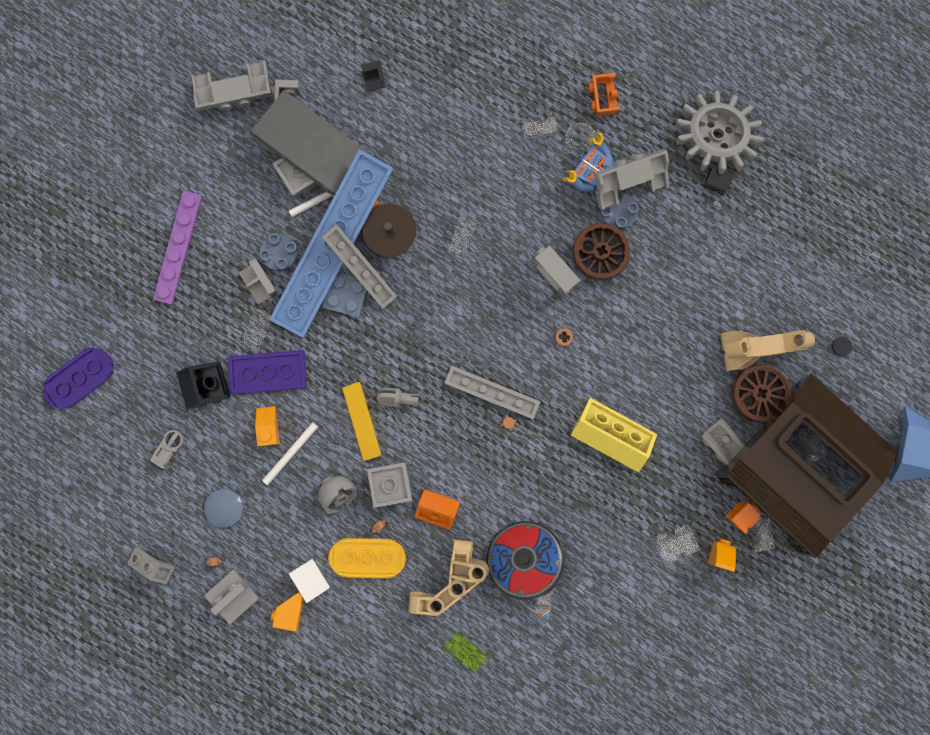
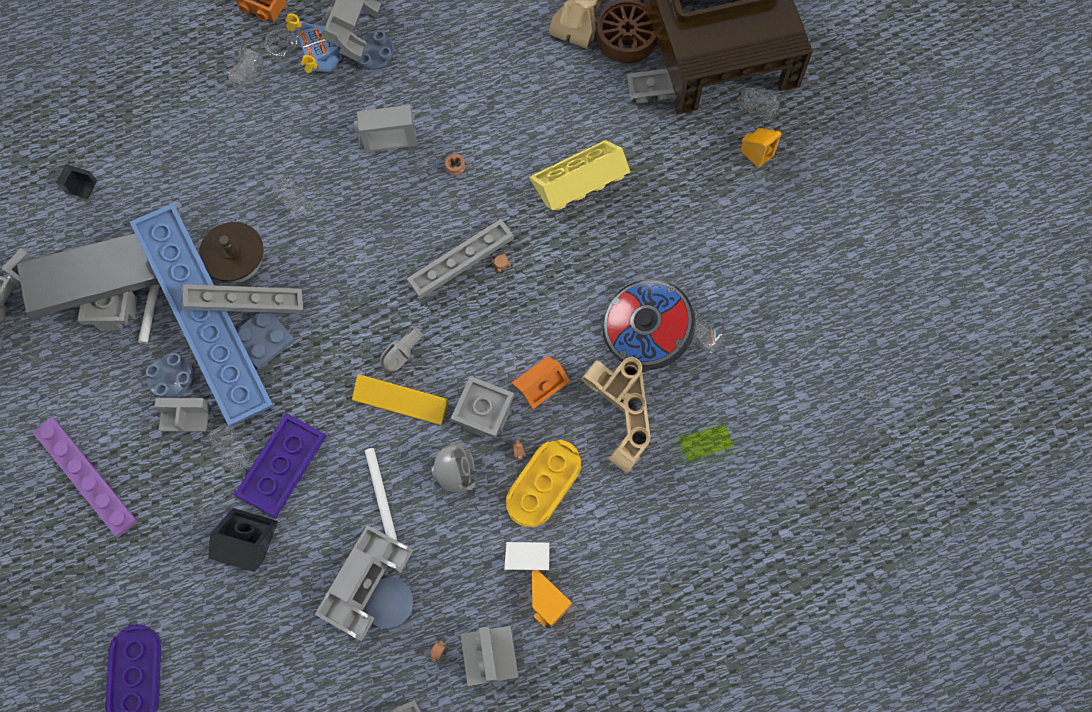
camera: 55 degrees left, 15 degrees down
(165, 451) = (282, 628): light grey piece -> none
(223, 480) = (359, 579): none -> light grey bracket
(267, 426) = (337, 499): light orange slope -> none
(578, 248) = (398, 84): reddish brown piece -> none
(672, 545) = (723, 181): clear brick -> none
(744, 515) = (733, 104): orange window -> none

